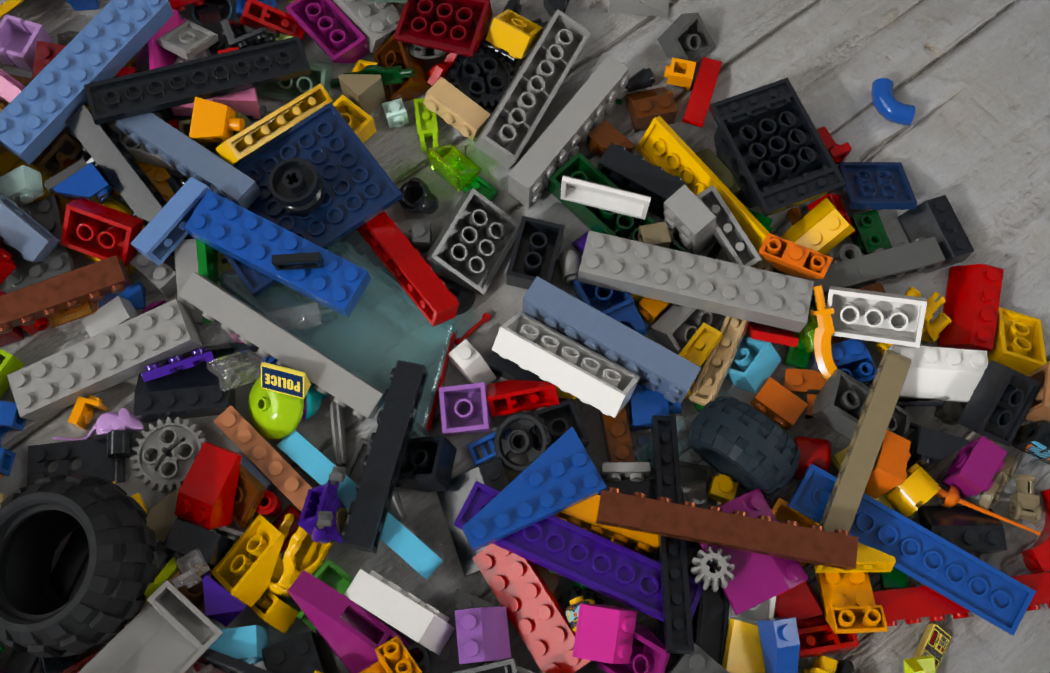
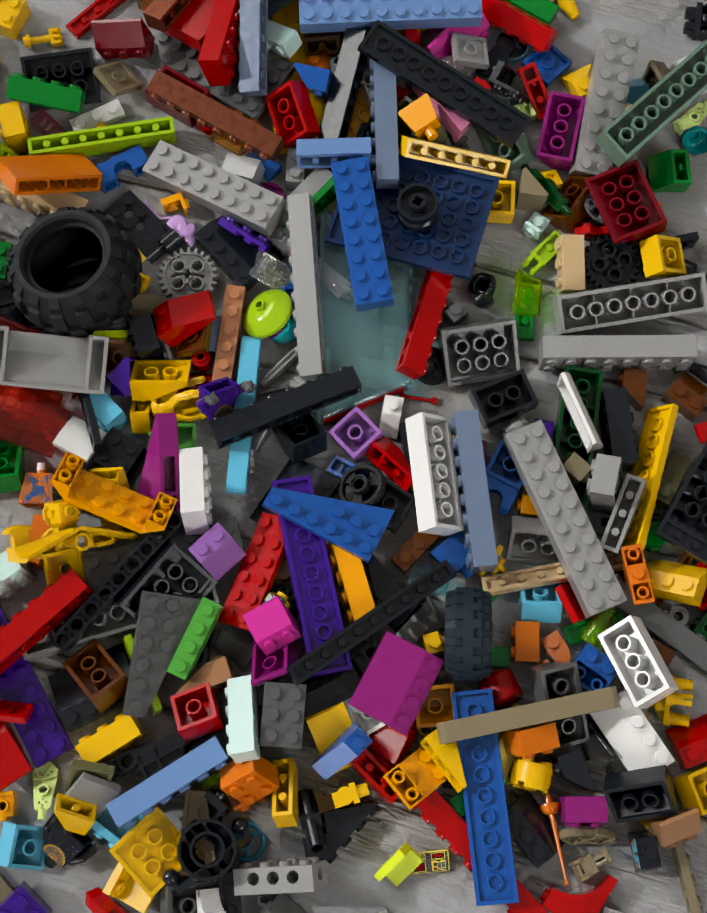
camera: 55 degrees right, 5 degrees up
(61, 176) = (310, 61): dark grey tile -> none
(192, 567) = (128, 346): clear bracket -> none
(284, 380) = (283, 306): slope -> none
(298, 261) = (362, 250): black tile -> none
(625, 470) = (397, 575): light grey plate -> none
(701, 344) = (523, 558): yellow plate -> none
(722, 572) = (359, 657): light grey gear -> none
(728, 530) = (395, 656): copper brick -> none
(823, 335) = (595, 635): light orange sword -> none

